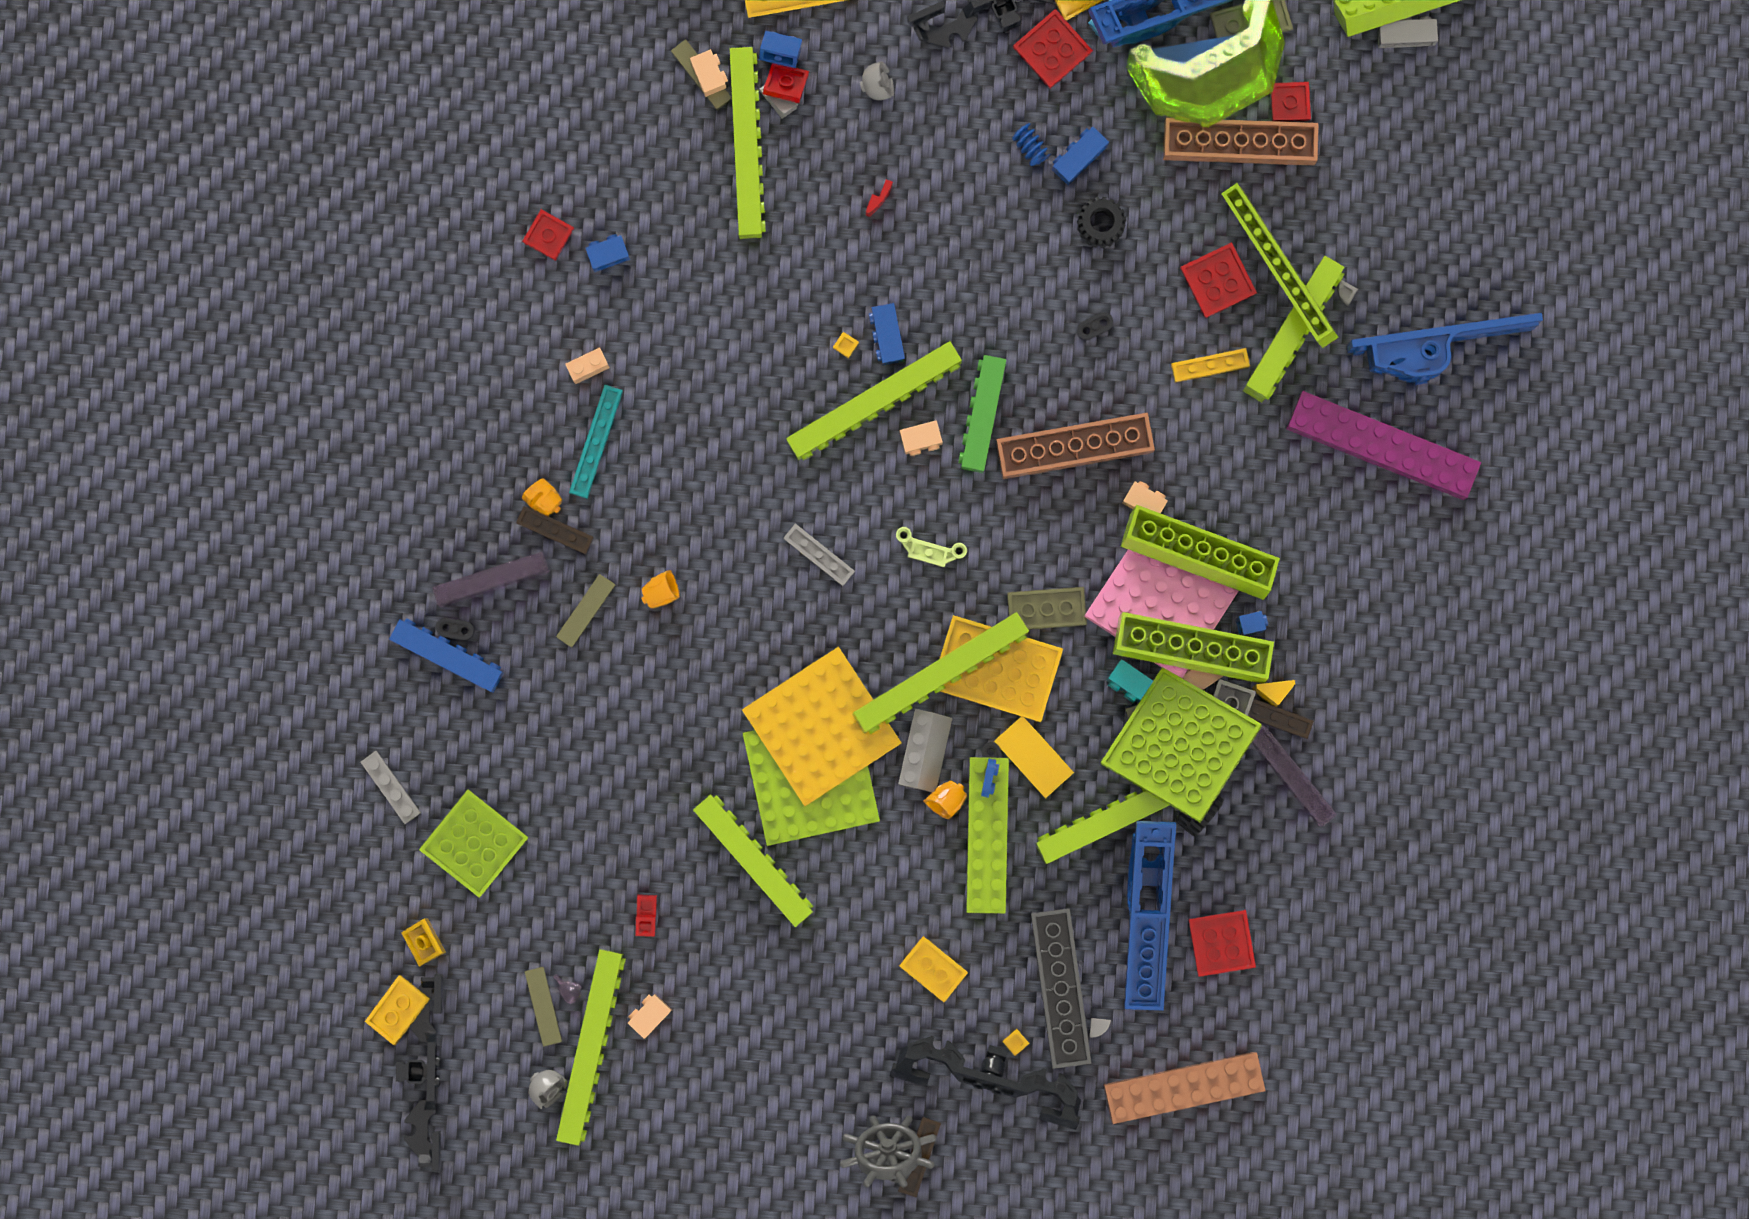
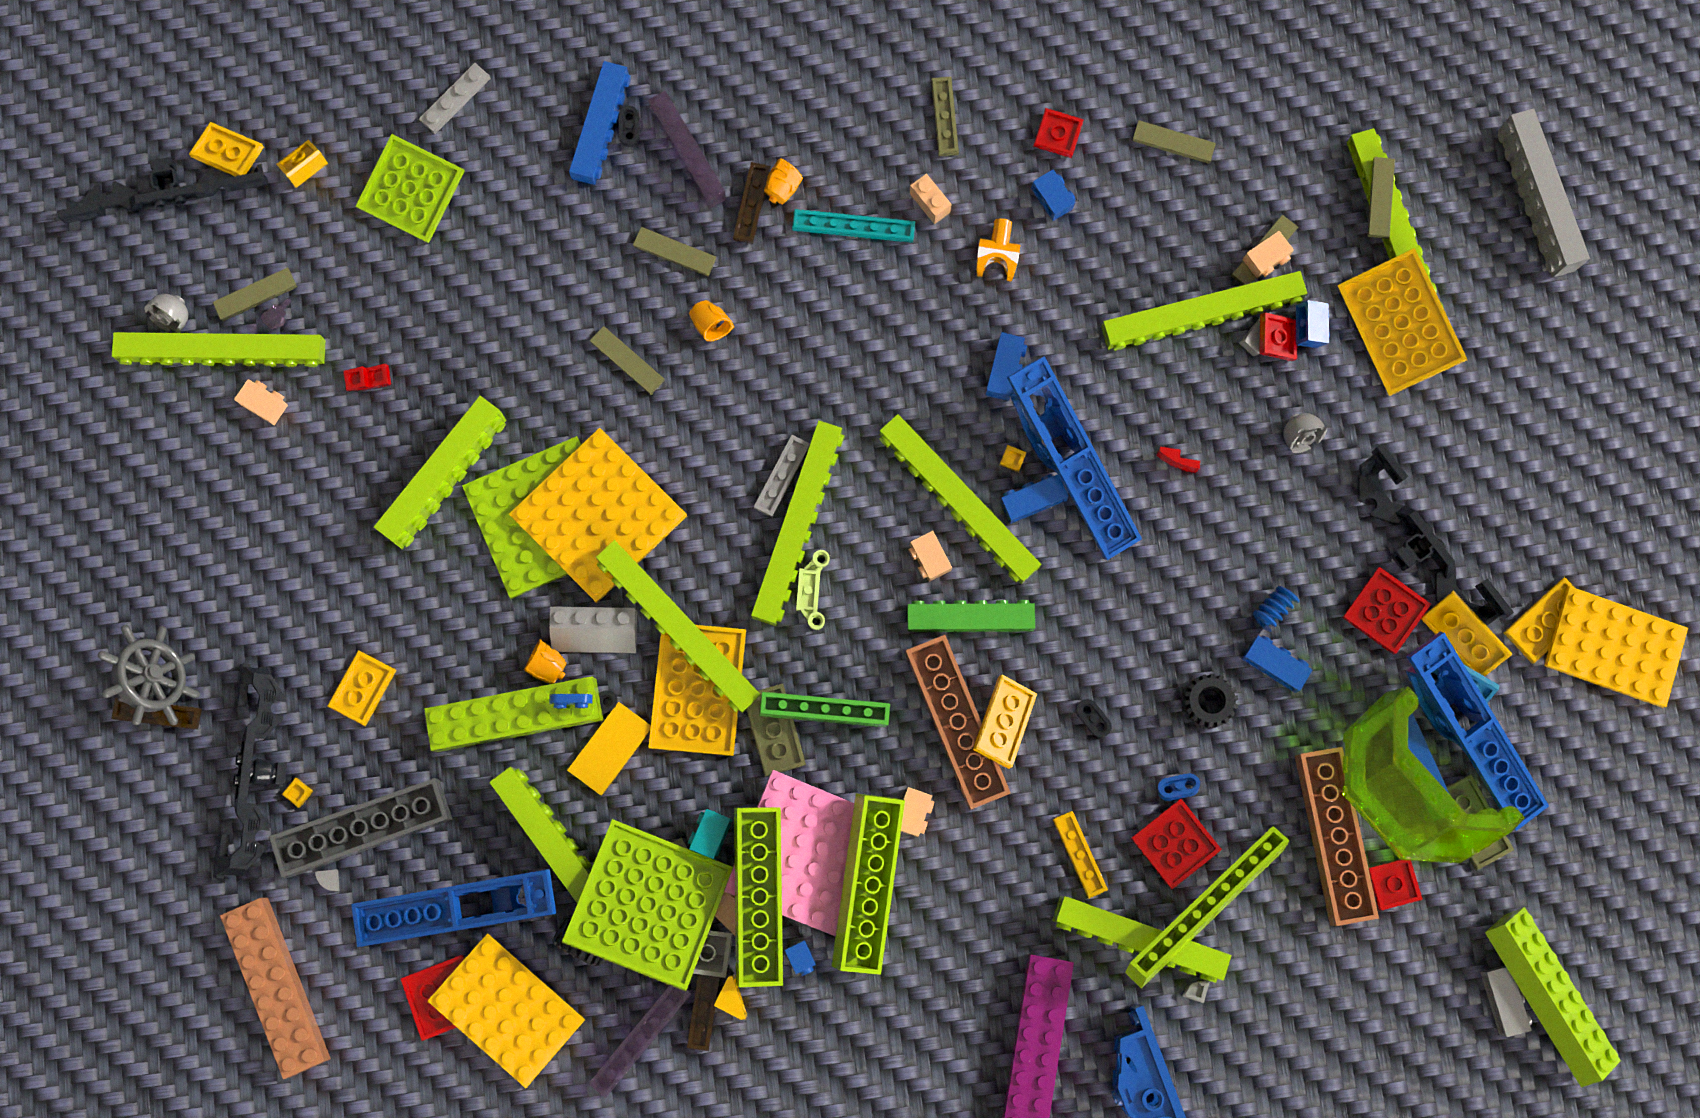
camera: 75 degrees right, 5 degrees down
(508, 335) = (944, 116): none -> olive tile
(579, 131) = (1174, 142): none -> olive tile
(649, 314) = (998, 249): none -> light orange connector
(680, 674) = (627, 360): none -> olive tile
(760, 332) = (1005, 363): none -> blue brick
(865, 549) = (797, 523): none -> lime brick
(875, 287) = (1082, 470): none -> blue piece
(1040, 559) = (824, 709): none -> bright green brick
(1083, 403) = (1005, 721): none -> yellow tile
(1169, 267) = (1177, 786): none -> blue plate
(1244, 888) = (506, 1010): none -> yellow plate

